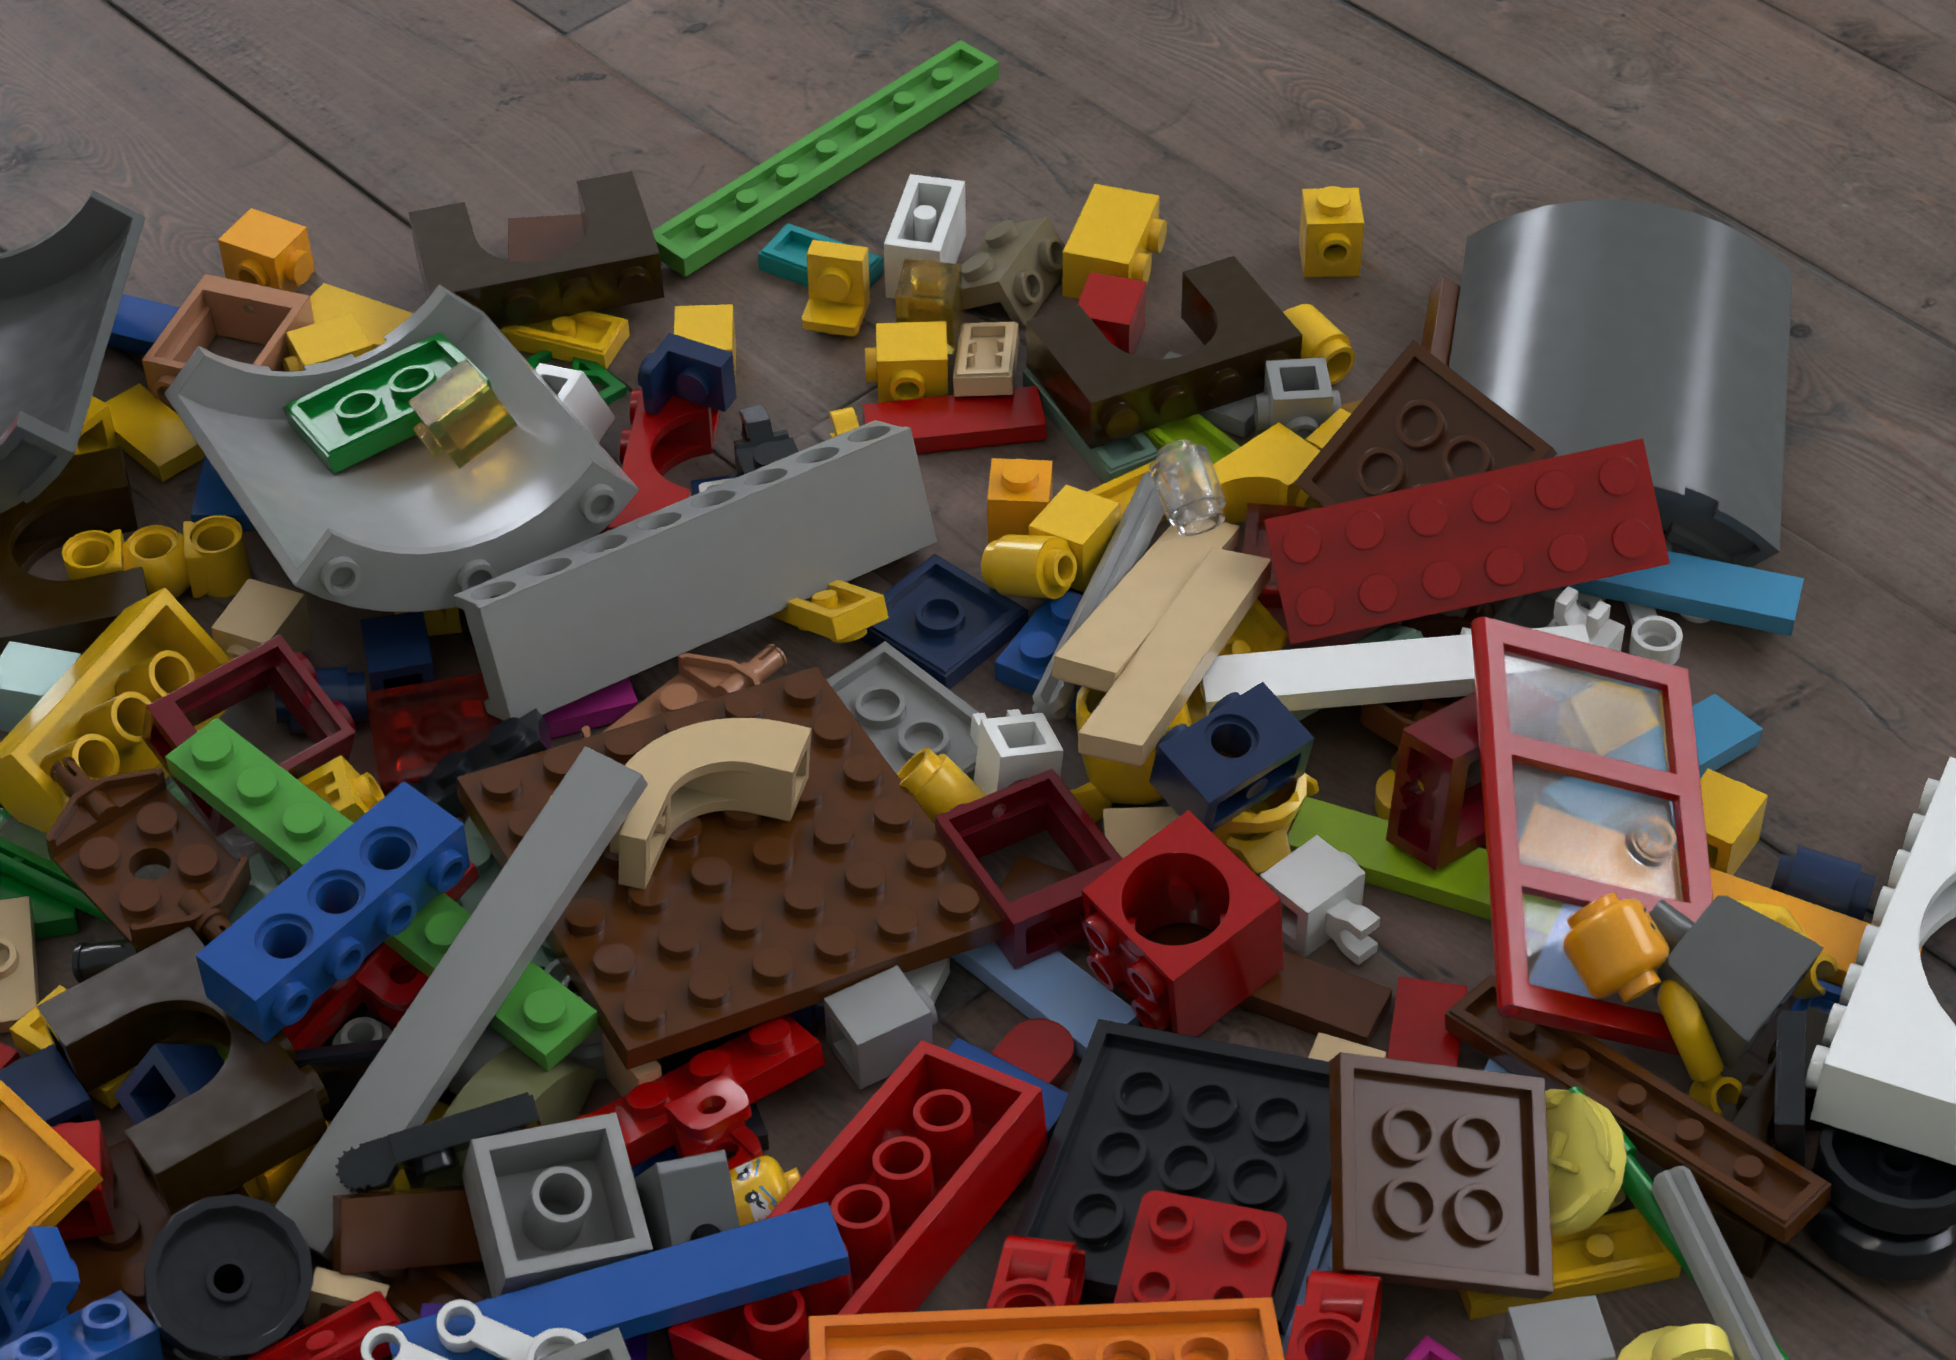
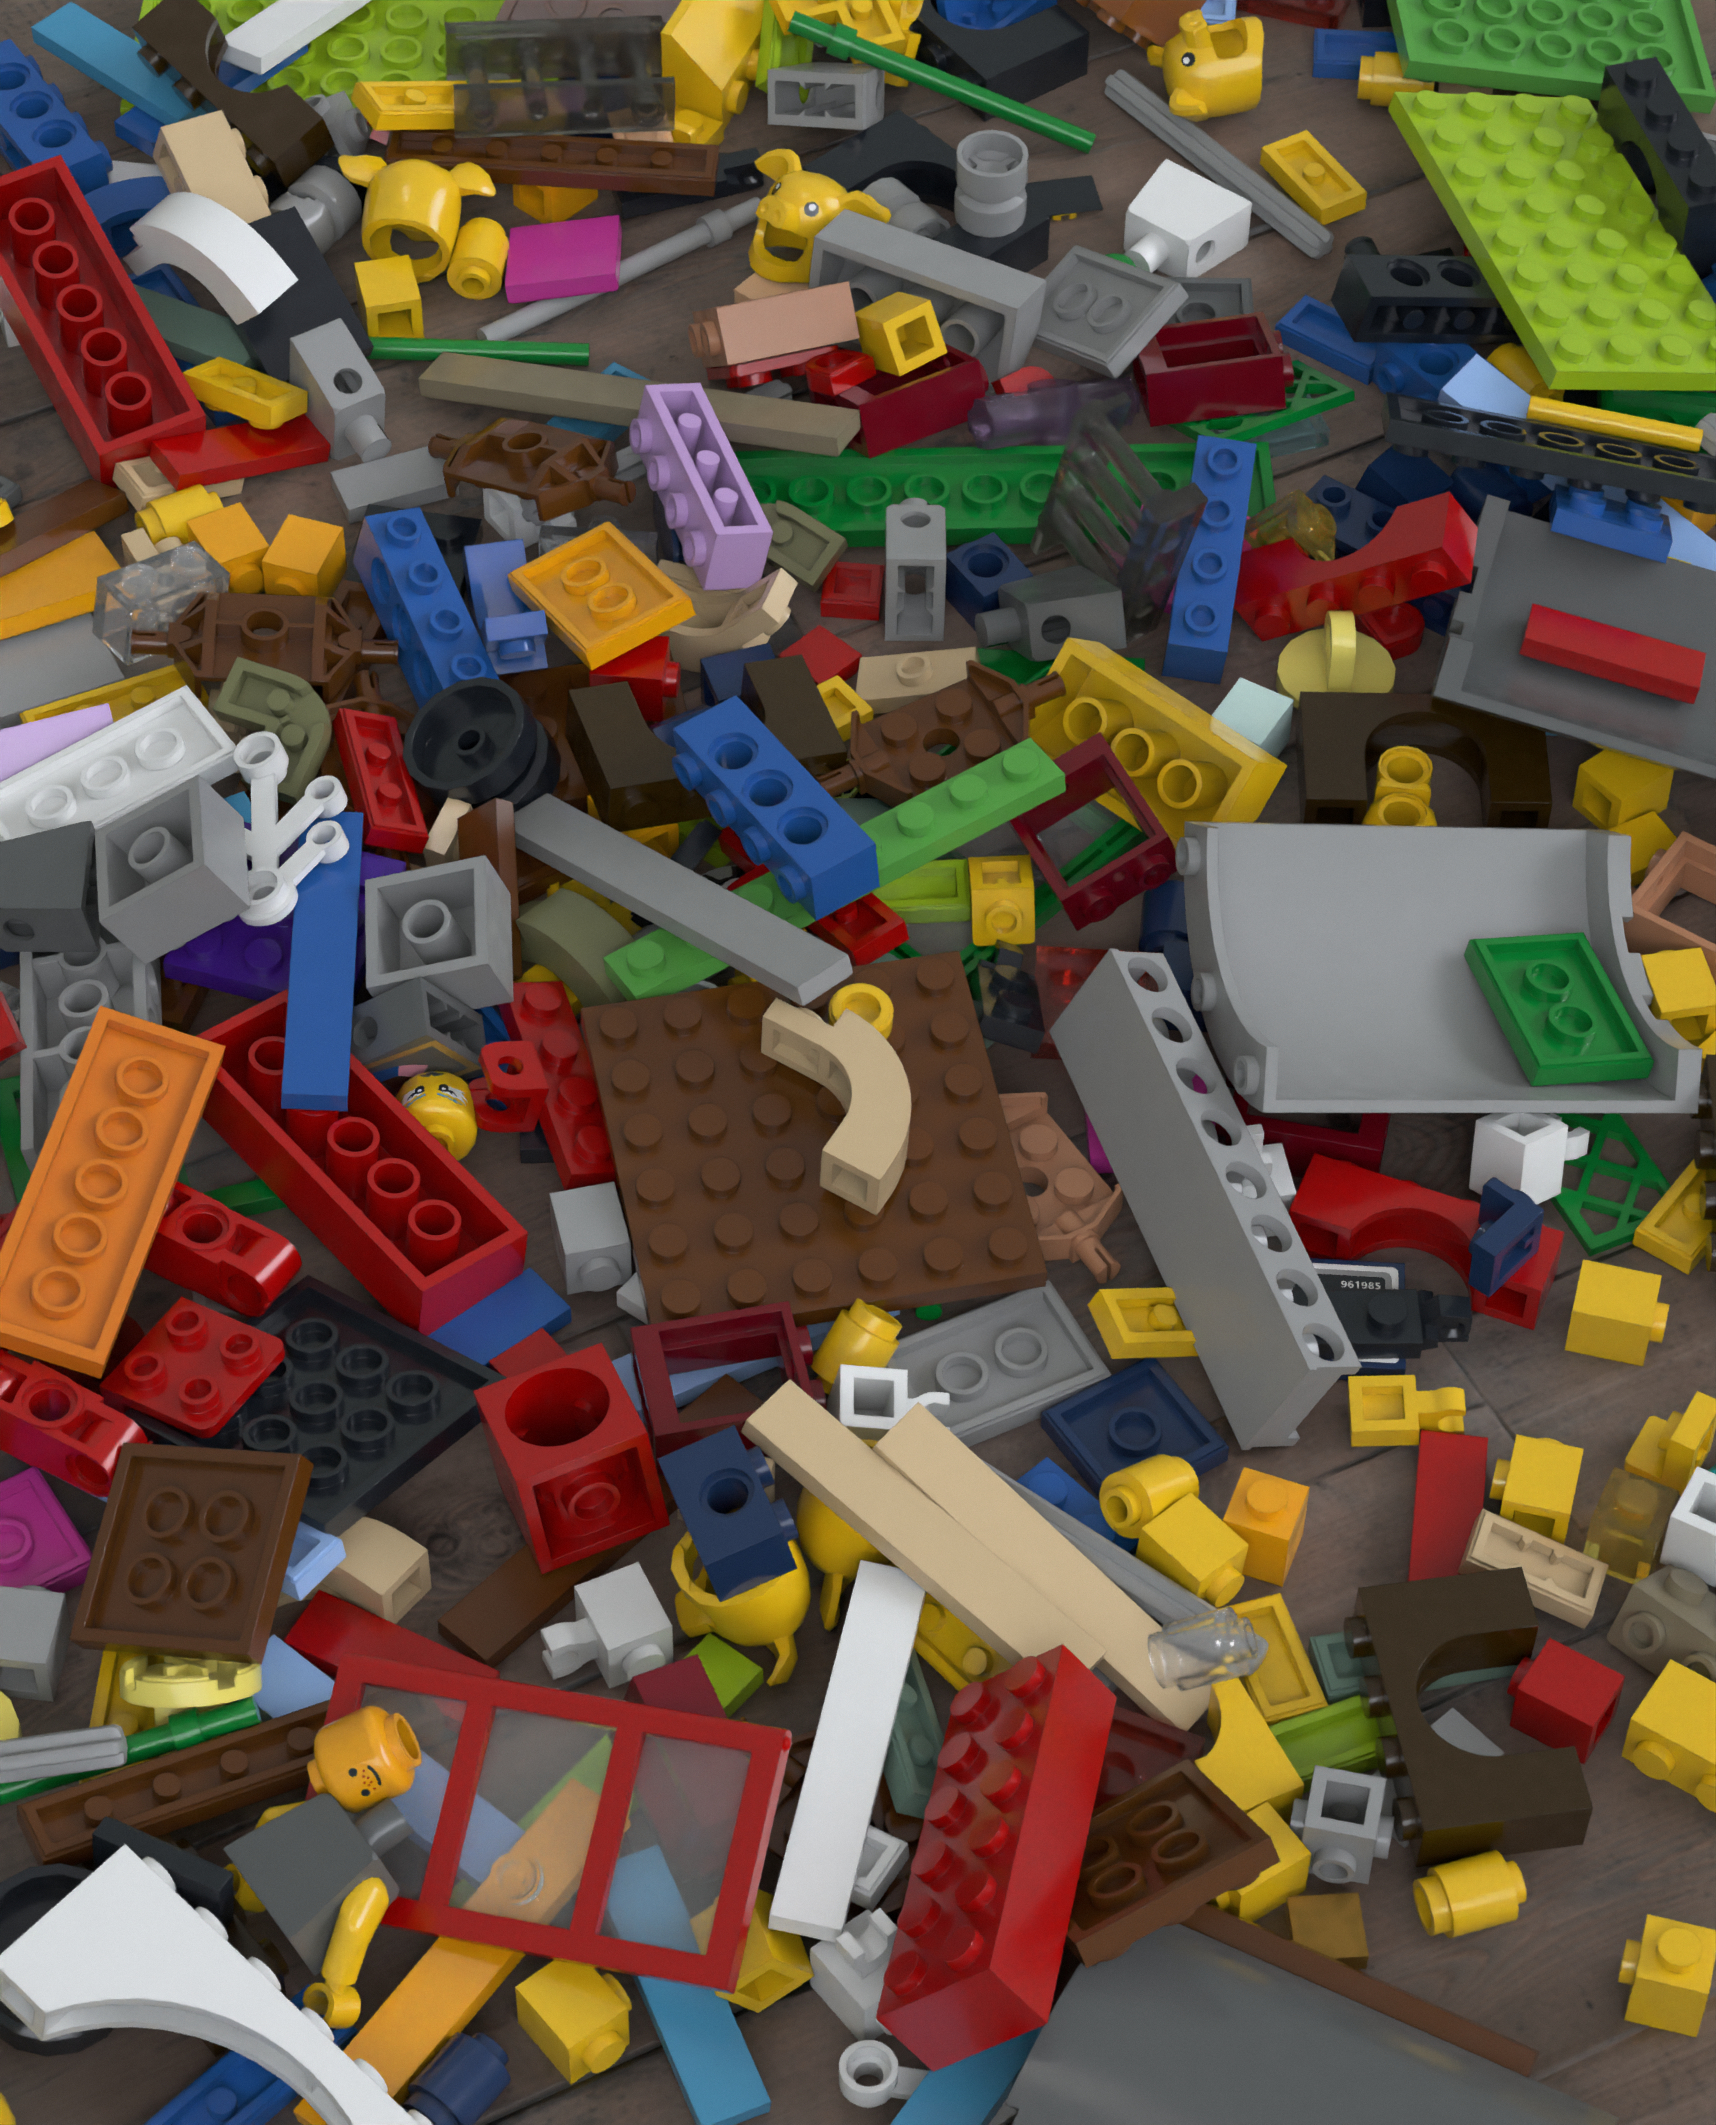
camera: 105 degrees right, 5 degrees up
(433, 1144) = (531, 872): black hinge -> none
(460, 415) = (1488, 1039): clear yellow brick -> none

